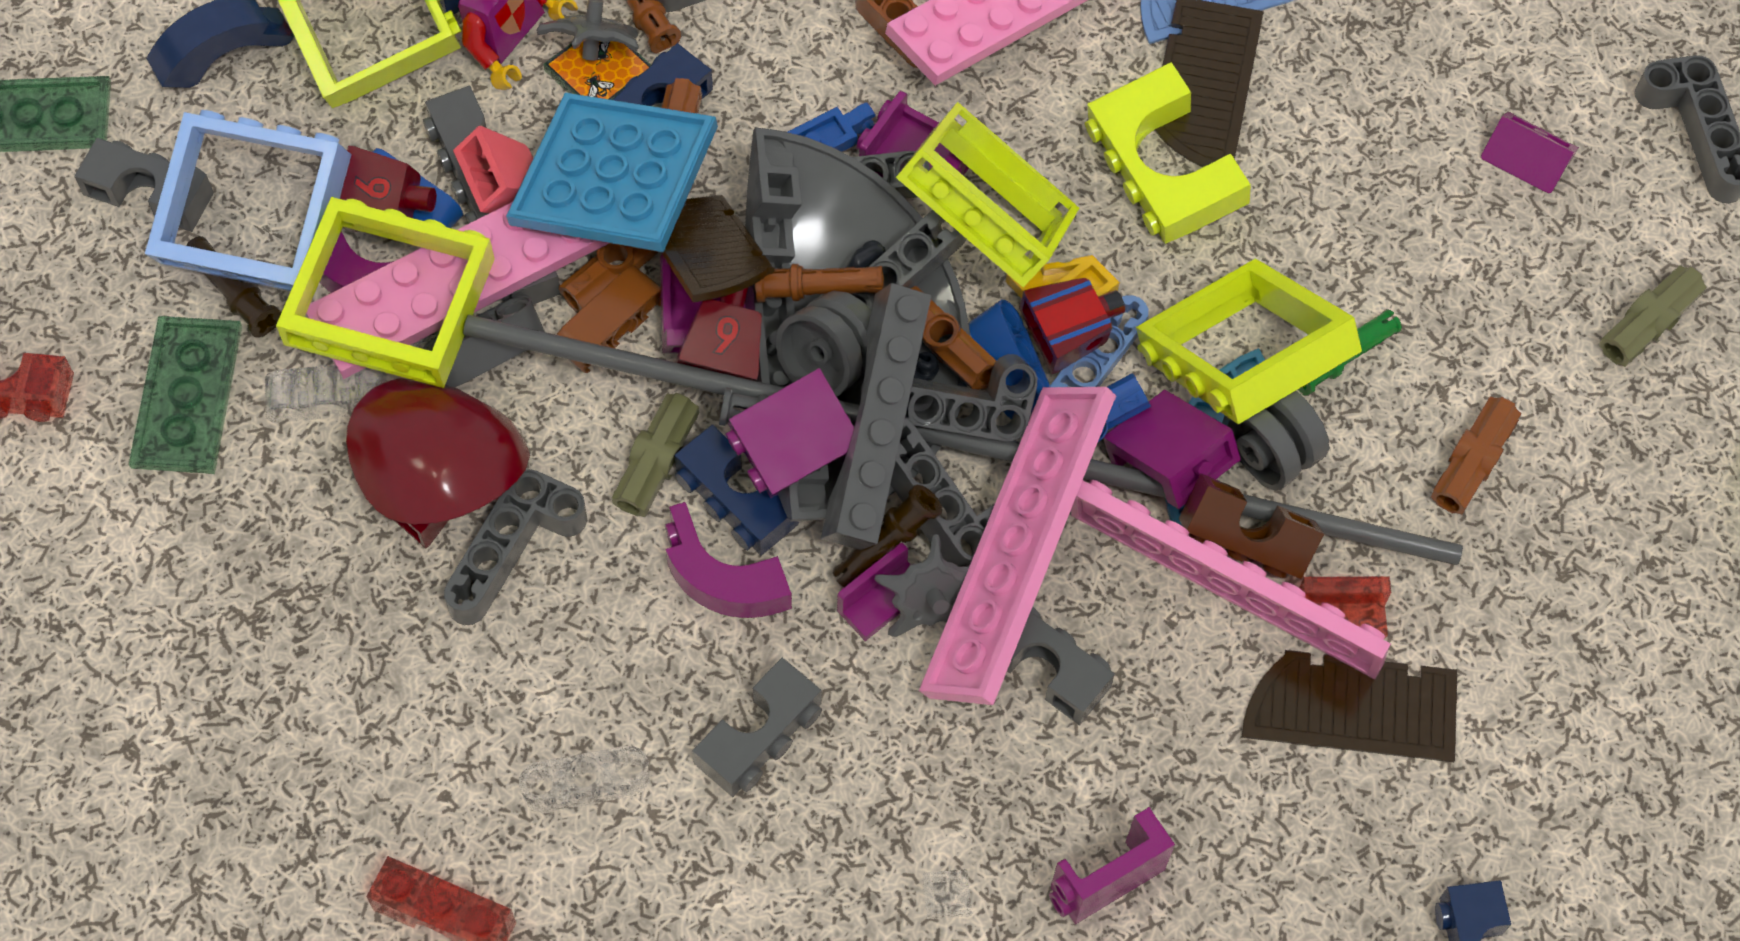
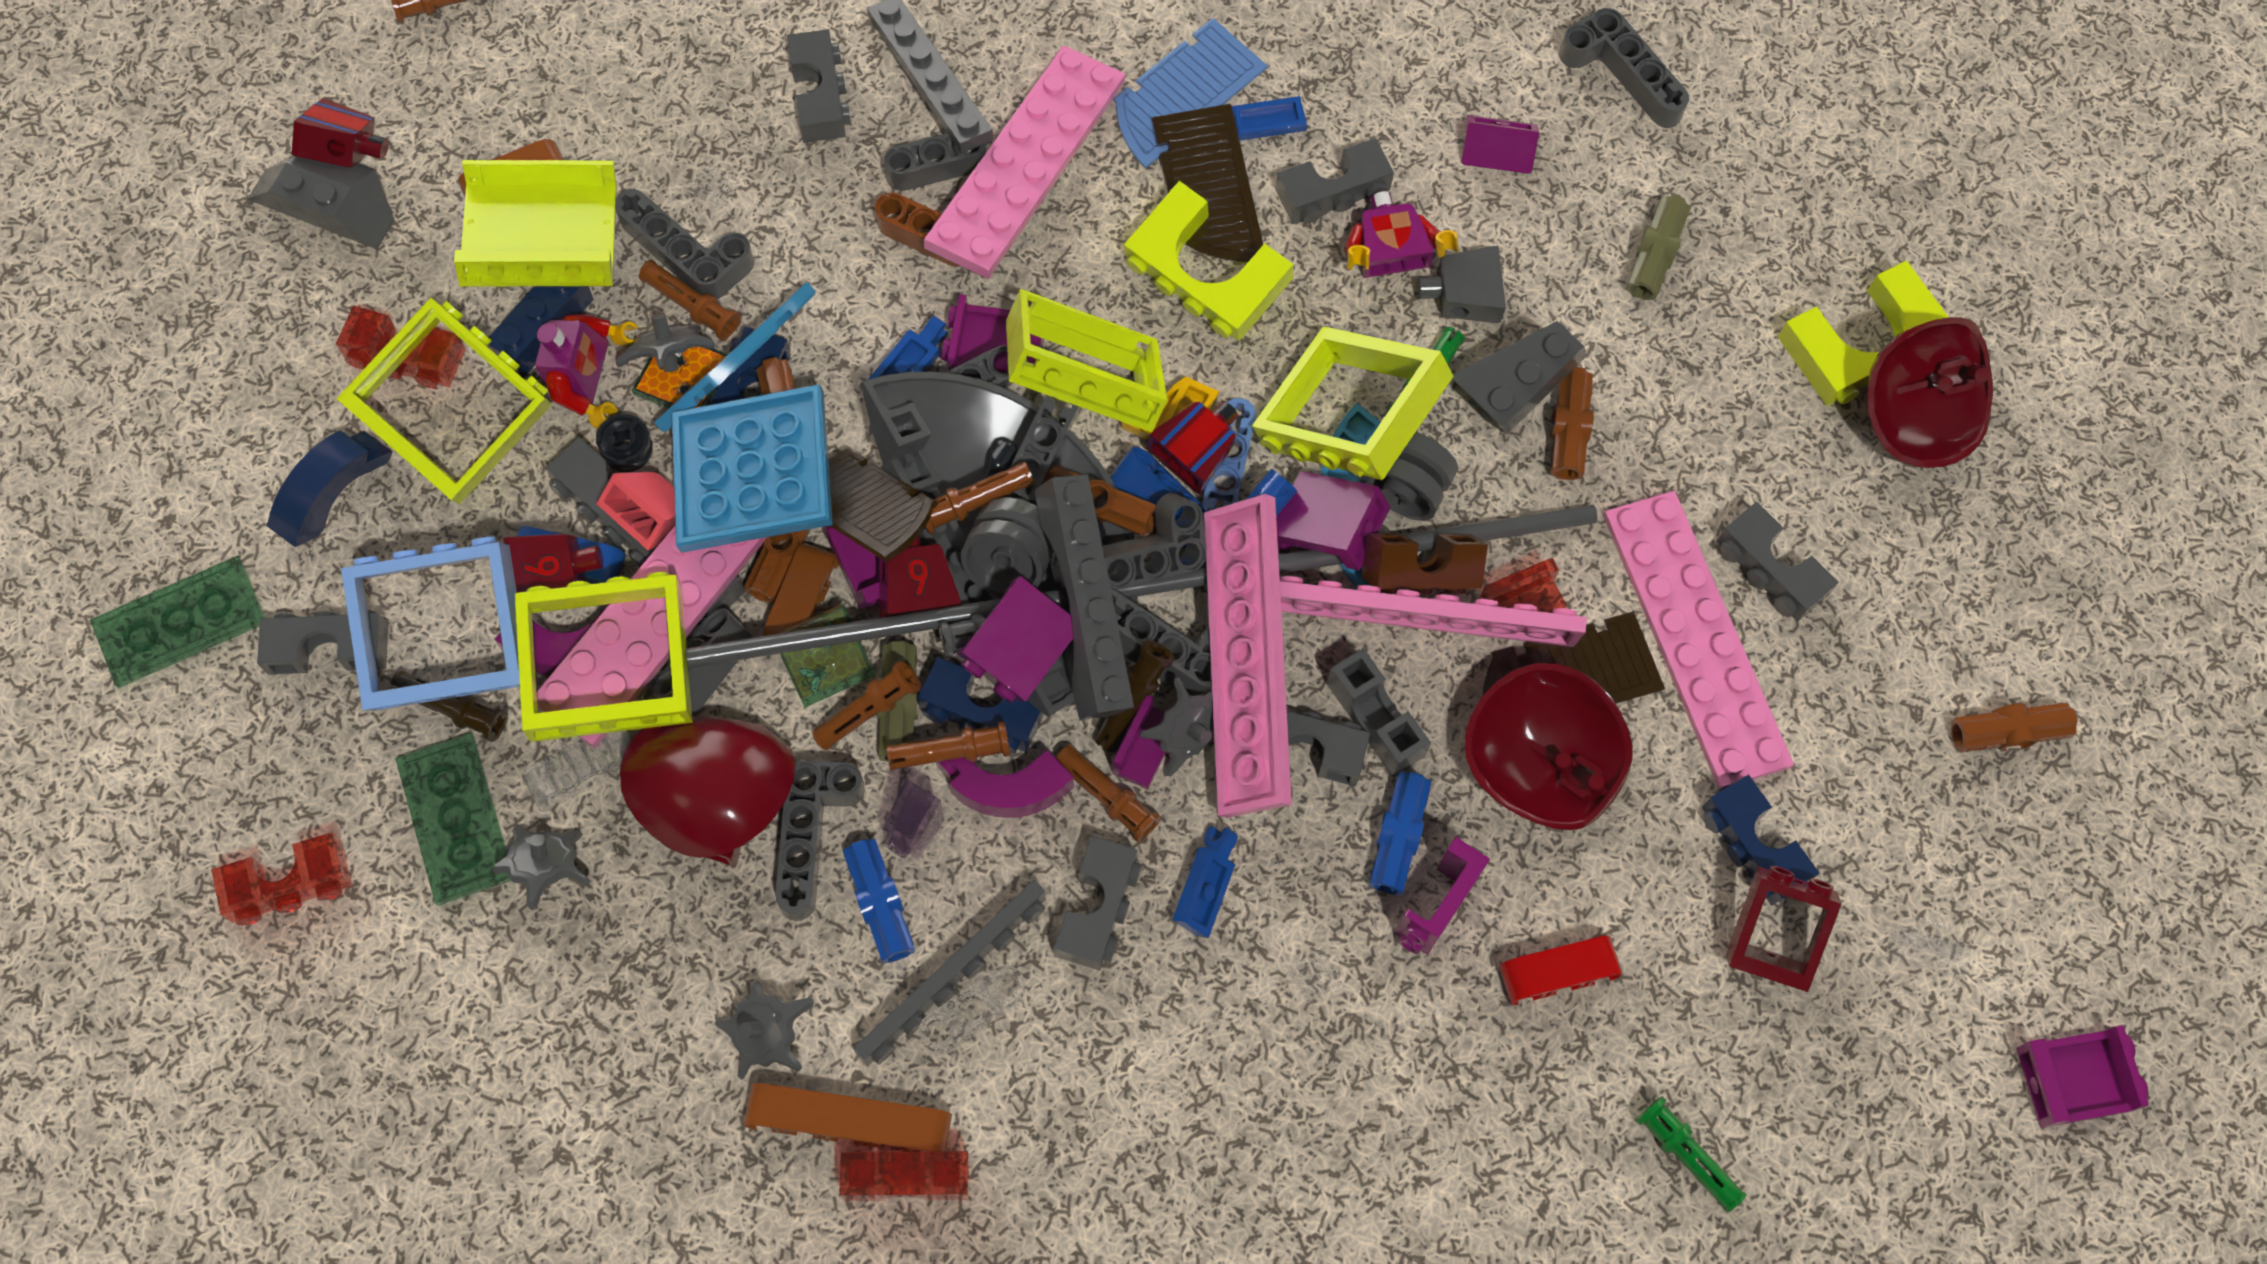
camera: 25 degrees left, 5 degrees up
(242, 463) = (540, 861): none -> dark grey piece
(374, 709) = (764, 1029): none -> dark grey piece
(412, 828) = (847, 1117): none -> dark orange beam
(503, 119) = (624, 457): none -> black wheel
(545, 636) = (879, 901): none -> blue piece
(598, 729) = (939, 986): none -> dark grey plate
(601, 393) = (826, 669): none -> clear green tile
(613, 571) = (912, 821): none -> clear purple slope
(634, 438) = (879, 697): none -> dark orange pin
(661, 61) = (738, 355): none -> dark azure tile
(700, 517) = (968, 744): none -> dark orange pin
(828, 641) = (1120, 804): none -> dark orange pin
(878, 755) = (1206, 883): none -> blue plate
(1101, 788) = (1400, 833): none -> blue piece
(1127, 638) = (1362, 693): none -> dark grey arch
(1297, 764) = (1549, 746): none -> dark red piece
(1298, 41) = (1269, 118): none -> blue tile
(1304, 129) = (1310, 195): none -> dark grey arch
(1370, 203) = (1395, 239): none -> torso
(1428, 276) = (1468, 285): none -> dark grey torso
(1441, 382) = (1520, 375): none -> dark grey wedge
(1513, 727) = (1697, 640): none -> bright pink plate
(1643, 714) = (1793, 587): none -> dark grey arch

